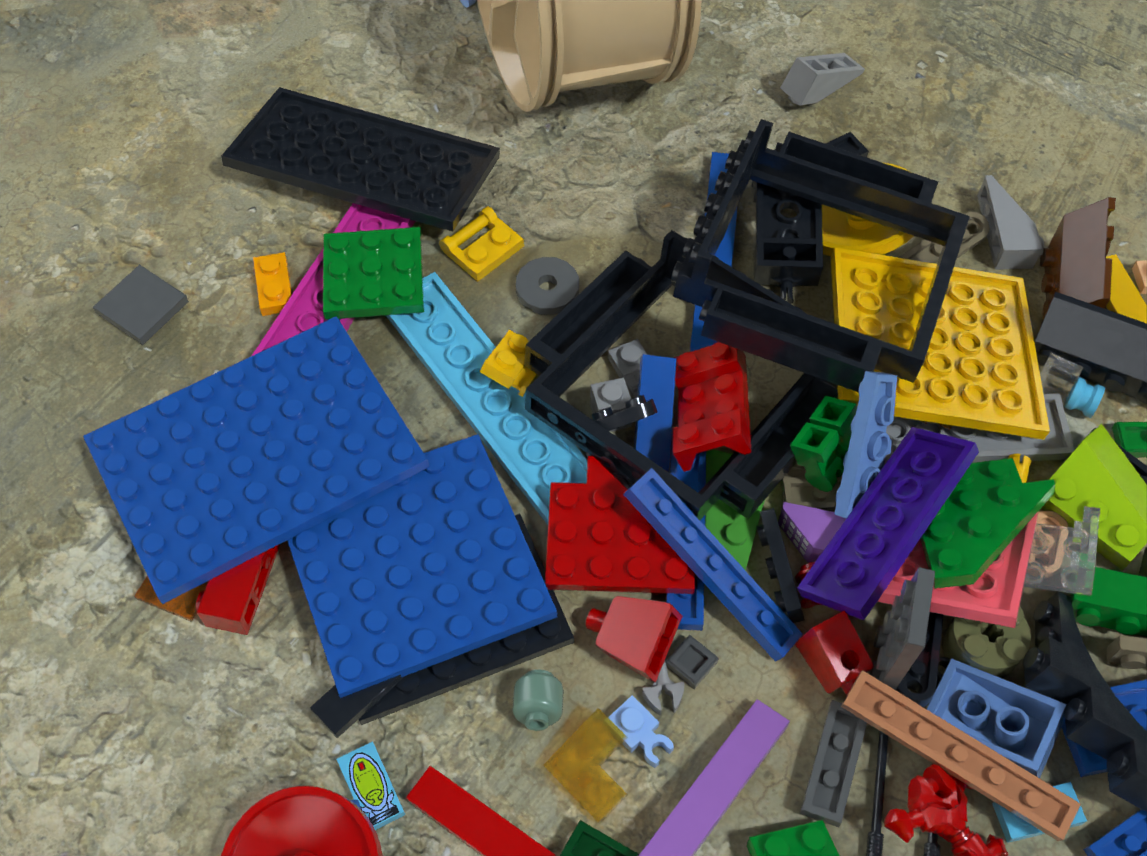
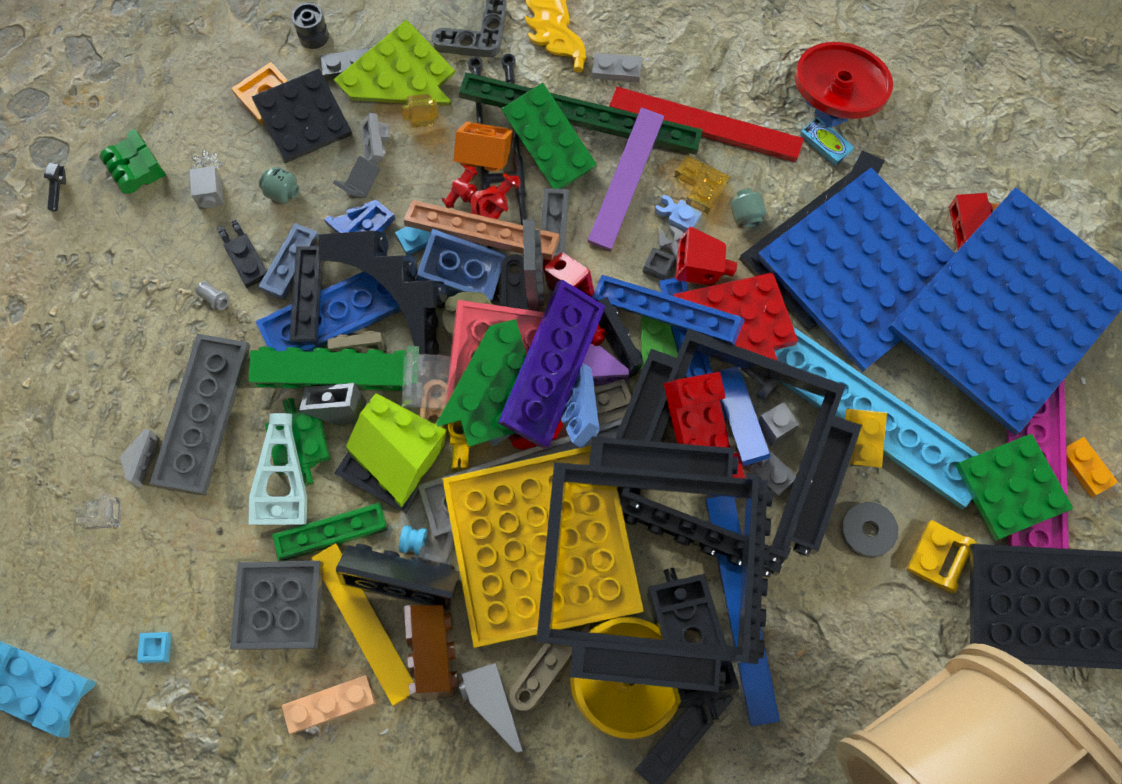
camera: 165 degrees right, 10 degrees up
(635, 410) = (766, 397): black plate -> none
(824, 442) = (612, 410): green legs -> none

